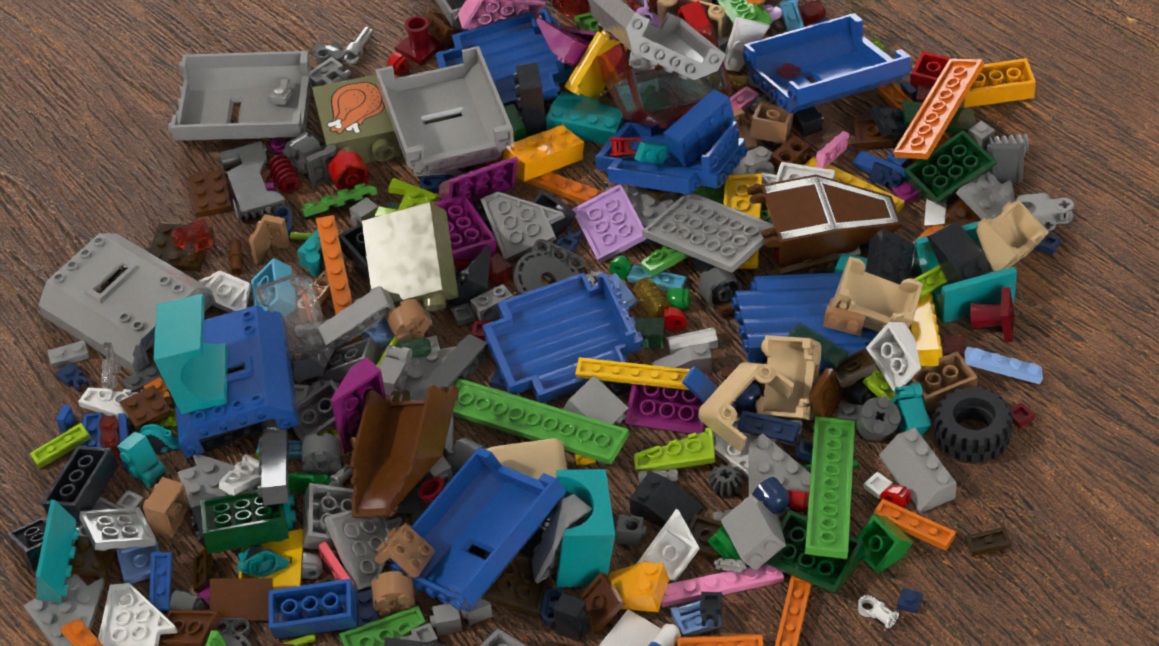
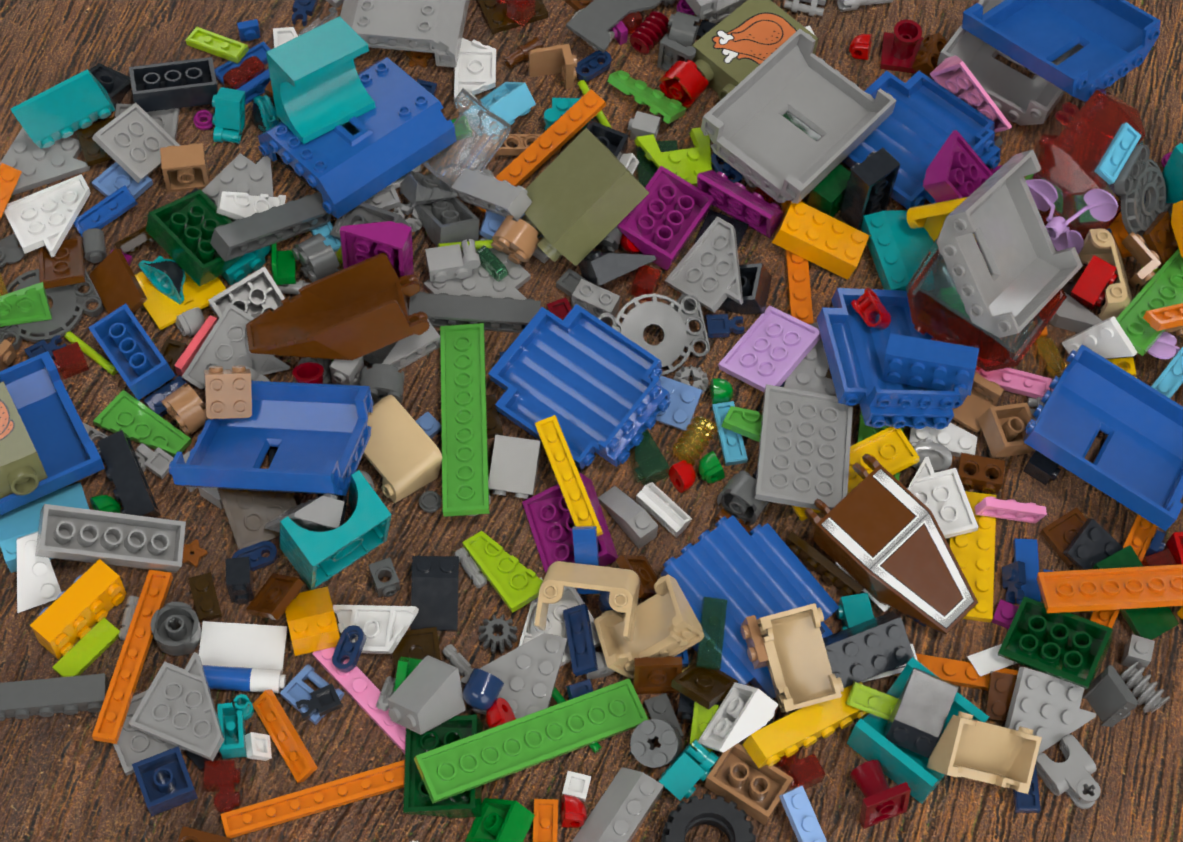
camera: 50 degrees right, 15 degrees up
(124, 483) = (203, 115): none -> magenta plate
(130, 500) = (186, 135): light grey tile -> none
(651, 152) = (869, 336): teal plate -> none
(680, 571) = (347, 649): none -> dark blue plate
(788, 70) = (1091, 408): plate -> none

